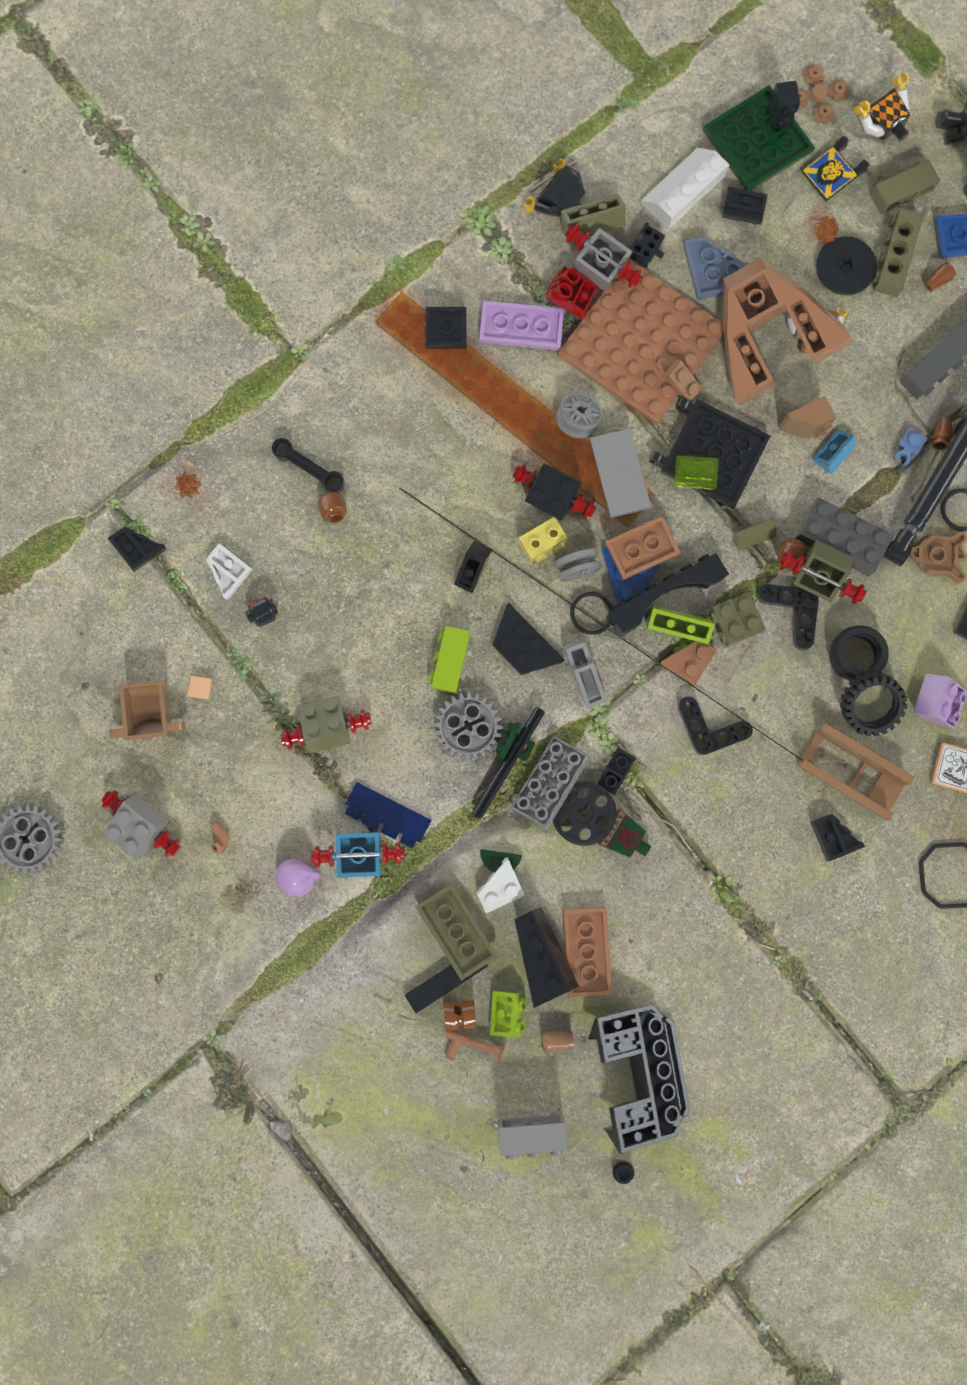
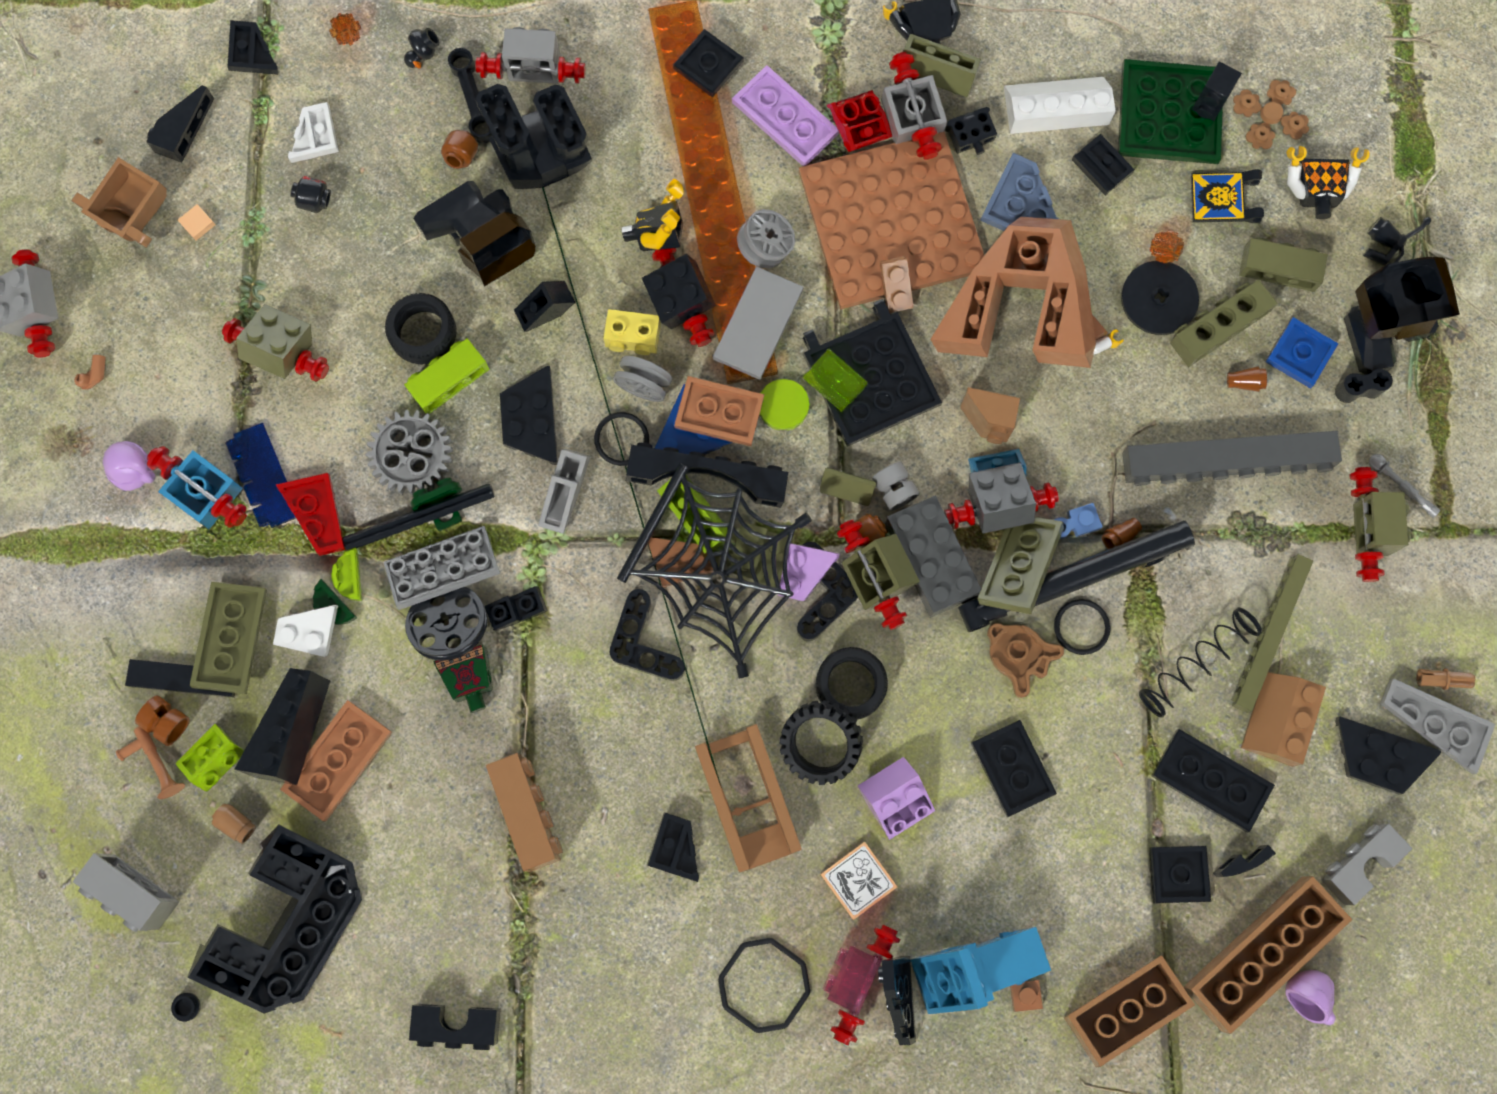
camera: 40 degrees right, 5 degrees down
(134, 635) = (178, 127): none -> black slope
(249, 457) = (423, 45): none -> black animal
(330, 411) = (531, 58): none -> light grey brick
(382, 463) = (538, 145): none -> black piece
(400, 545) = (484, 228): none -> black piece
(404, 621) = (412, 305): none -> black tyre
(441, 810) = (316, 511): none -> red wing
(493, 834) = (347, 575): none -> lime tile
(504, 457) = (660, 225): none -> torso
(661, 649) = (628, 568): none -> black animal
(676, 511) = (784, 404): none -> lime tile
(732, 890) = (523, 812): none -> medium nougat brick
(774, 606) = (806, 569): none -> lavender wing
(780, 506) = (891, 478): none -> light grey wheel
(811, 1041) = (429, 1026): none -> black arch
(857, 468) = (1001, 499): none -> dark grey brick
(902, 499) = (1021, 565): none -> olive plate

